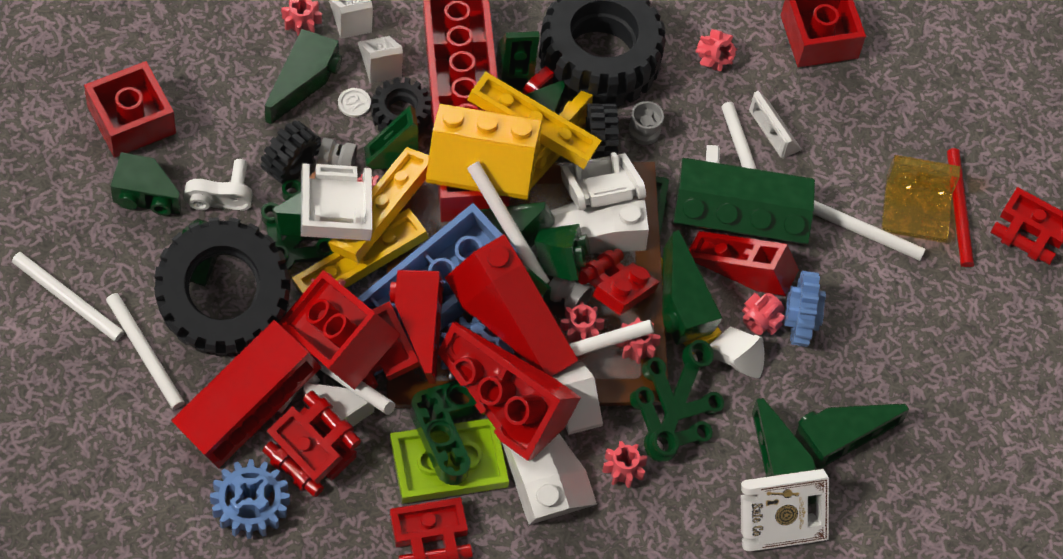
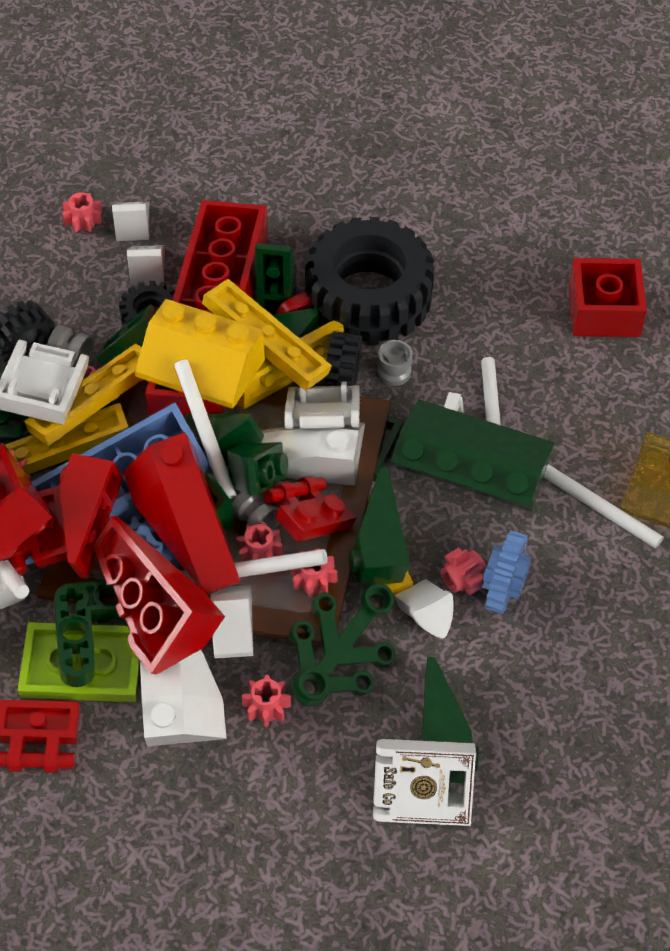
camera: 20 degrees right, 5 degrees down
(303, 73) = (63, 264): dark green slope -> none
(354, 102) = (107, 300): white piece -> none
(716, 50) = (490, 300): coral gear -> none
(751, 262) = (464, 516): red slope -> none
(773, 126) = (530, 387): white slope -> none
(844, 429) = (518, 709): dark green slope -> none

